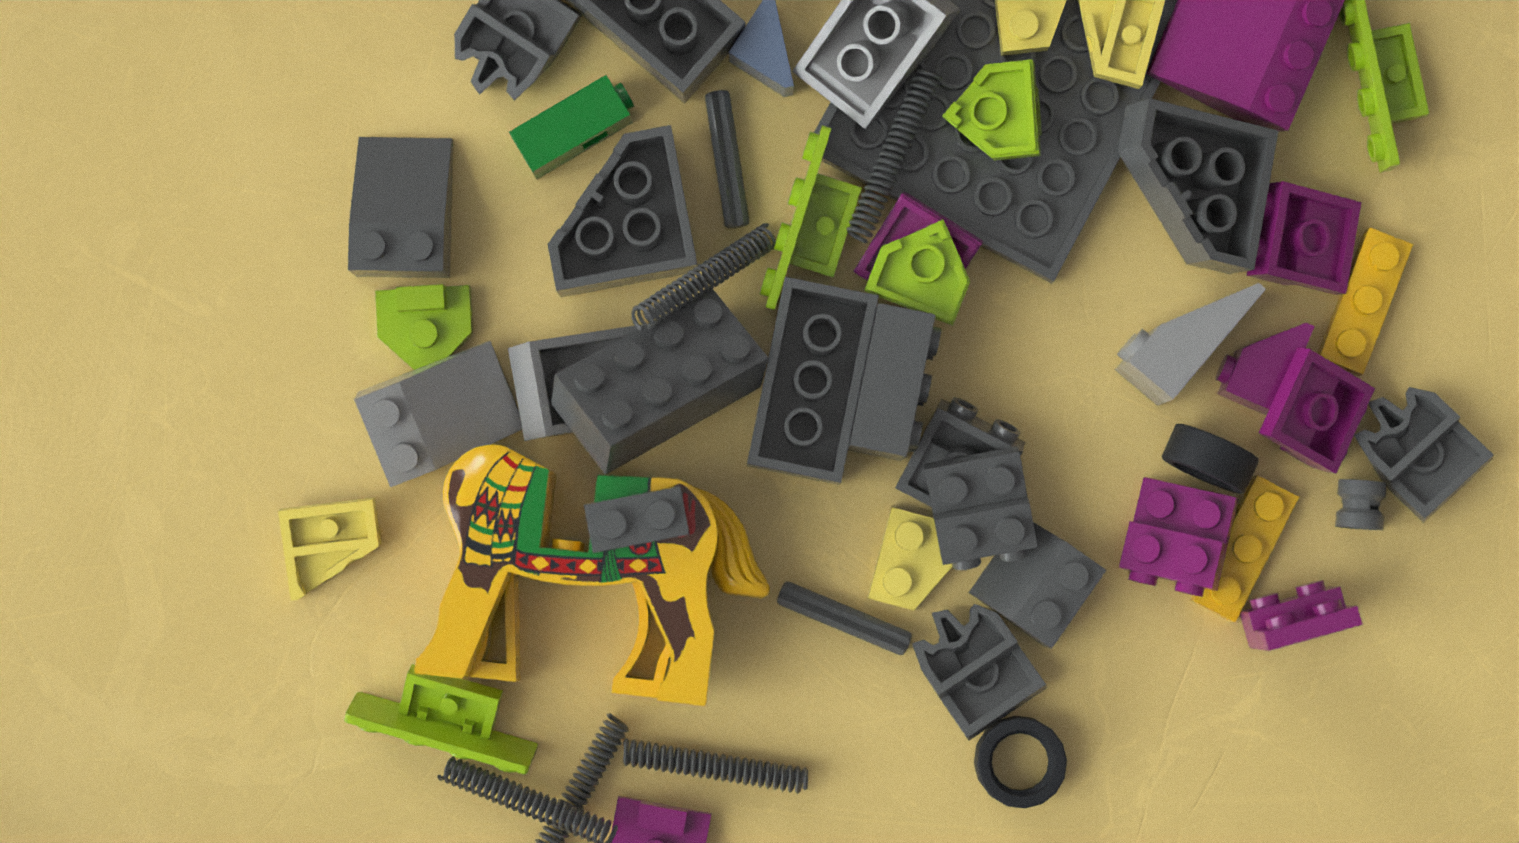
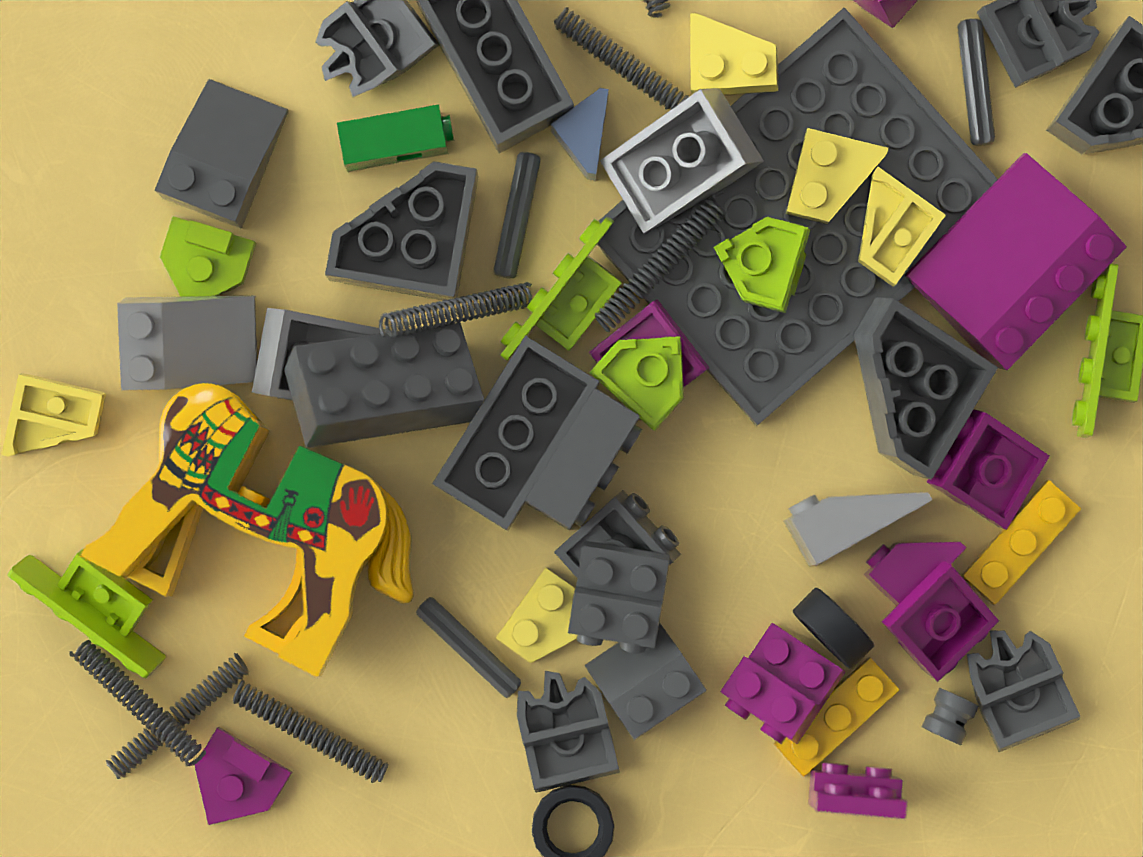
camera: 20 degrees right, 0 degrees up
(636, 519) = (318, 496): dark grey plate -> none

